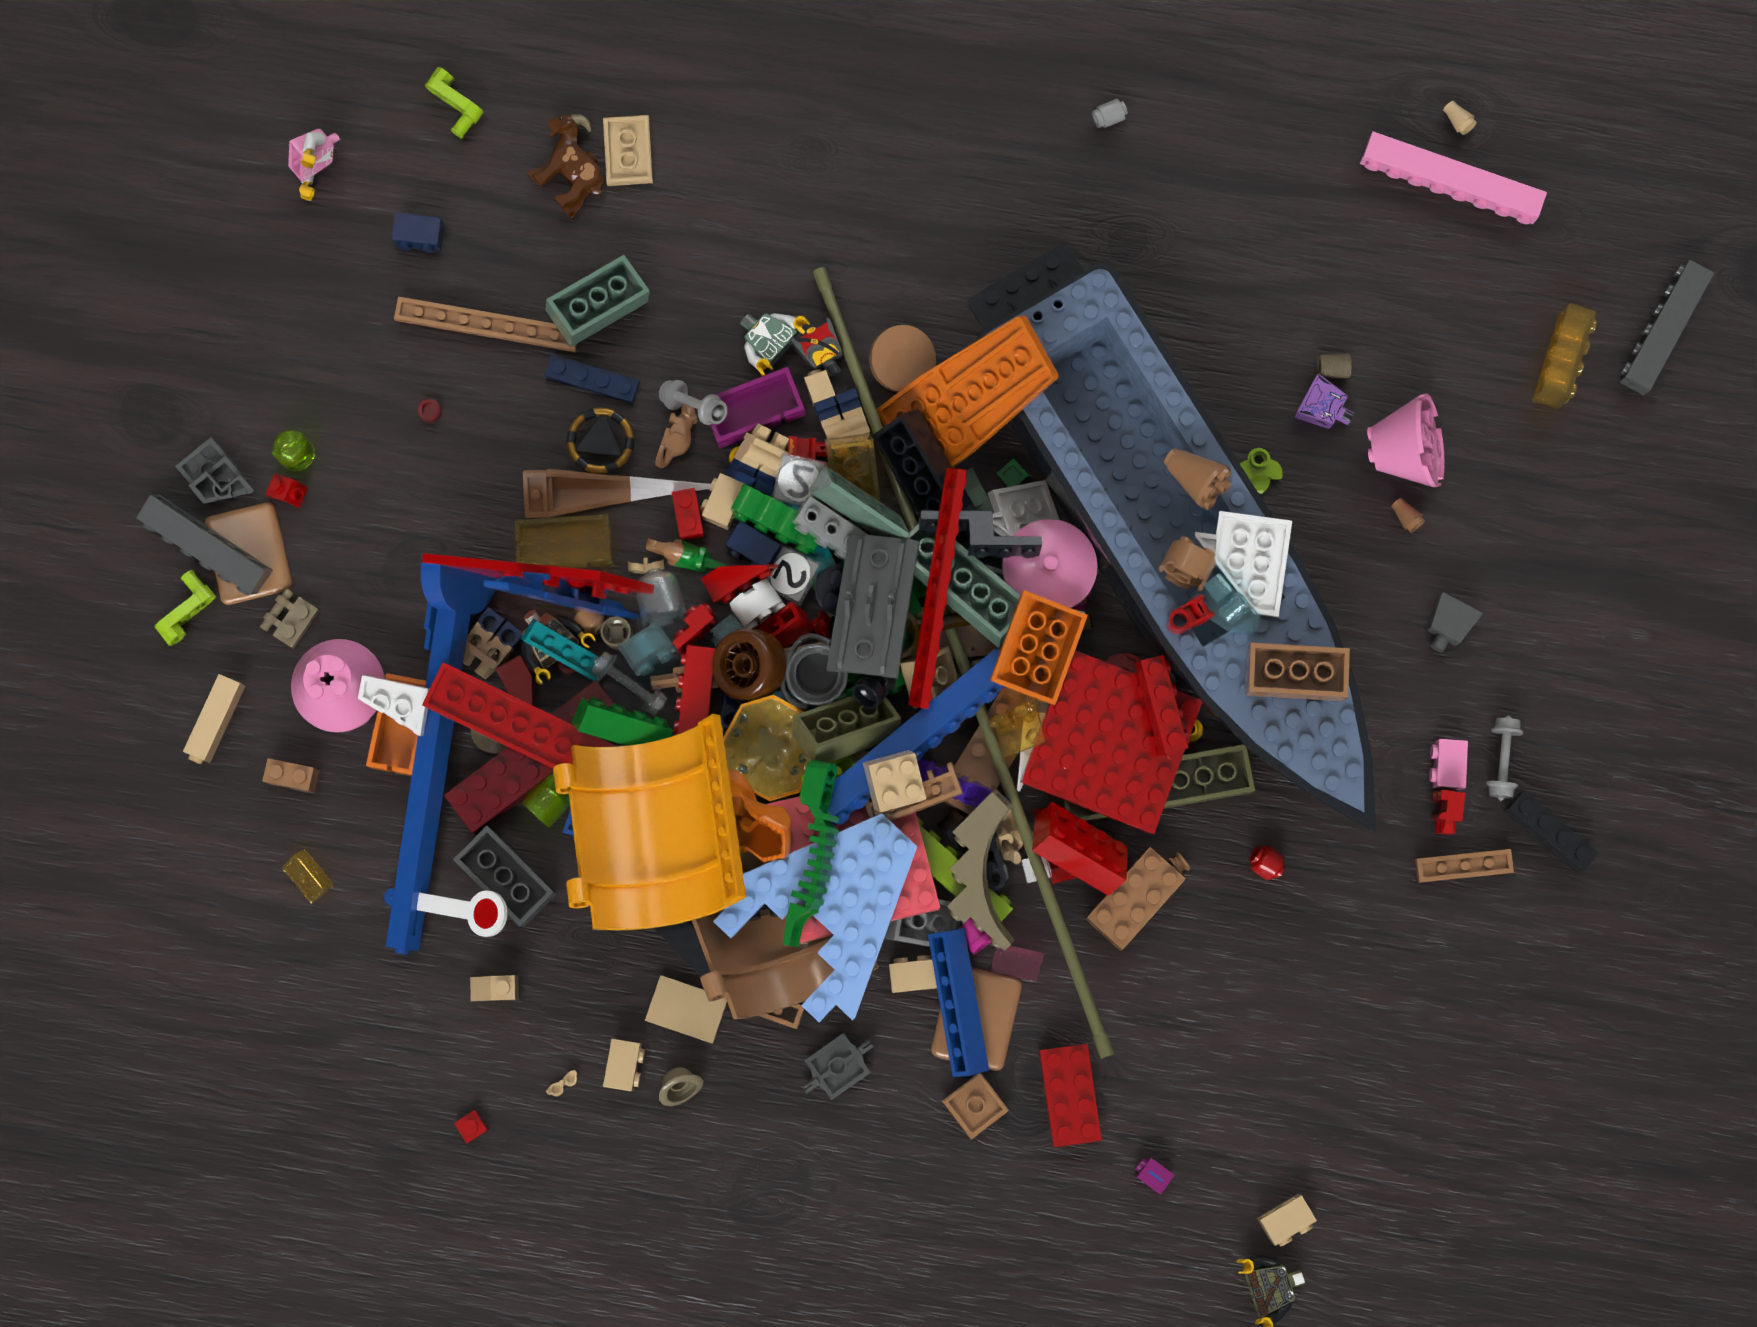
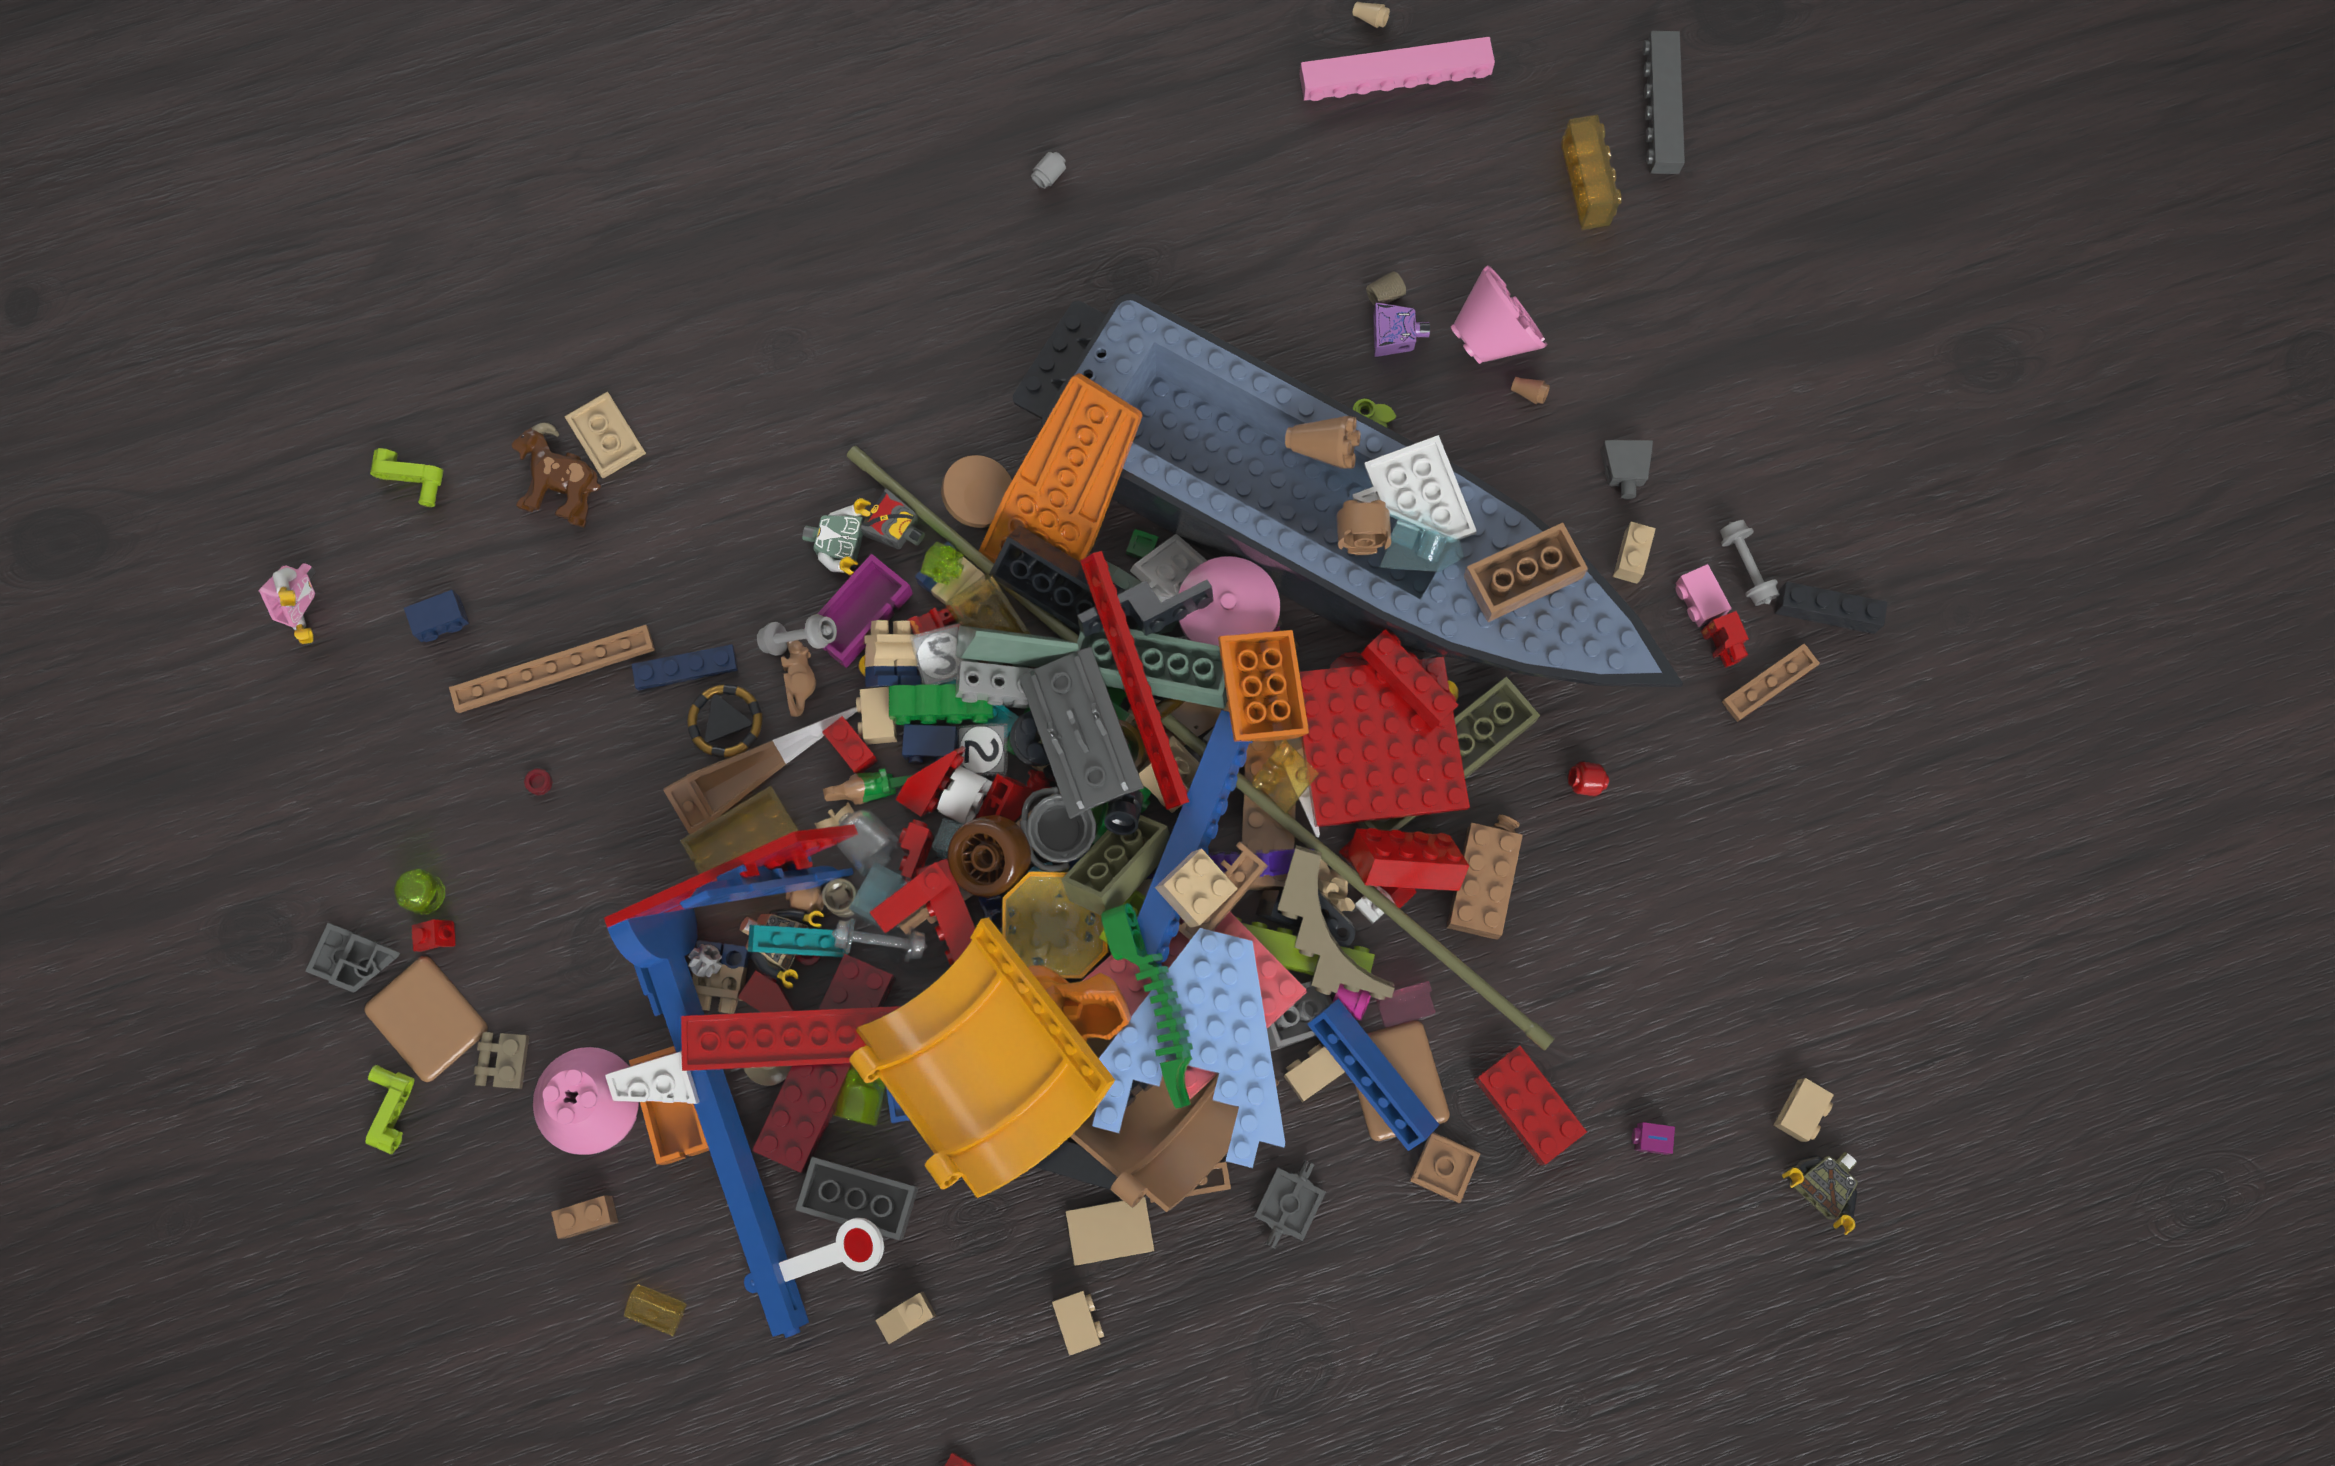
camera: 30 degrees left, 5 degrees down
(204, 544) = (374, 1033): dark grey brick -> none
(213, 719) = (475, 1203): tan brick -> none
(484, 627) = (705, 960): none -> light grey gear
(557, 1088) = (1024, 1384): tan piece -> none
(597, 300) = (650, 588): sand green brick -> none
(617, 724) = (890, 985): green brick -> none
(669, 664) = (910, 897): none -> red slope
(679, 1086) = (1145, 1312): dark tan hat -> none
(819, 386) = (909, 558): tan brick -> none
(840, 406) = (942, 563): none -> clear neon green brick
(1193, 613) = (1393, 571): red piece -> none
(1413, 698) = (1634, 552): none -> tan brick

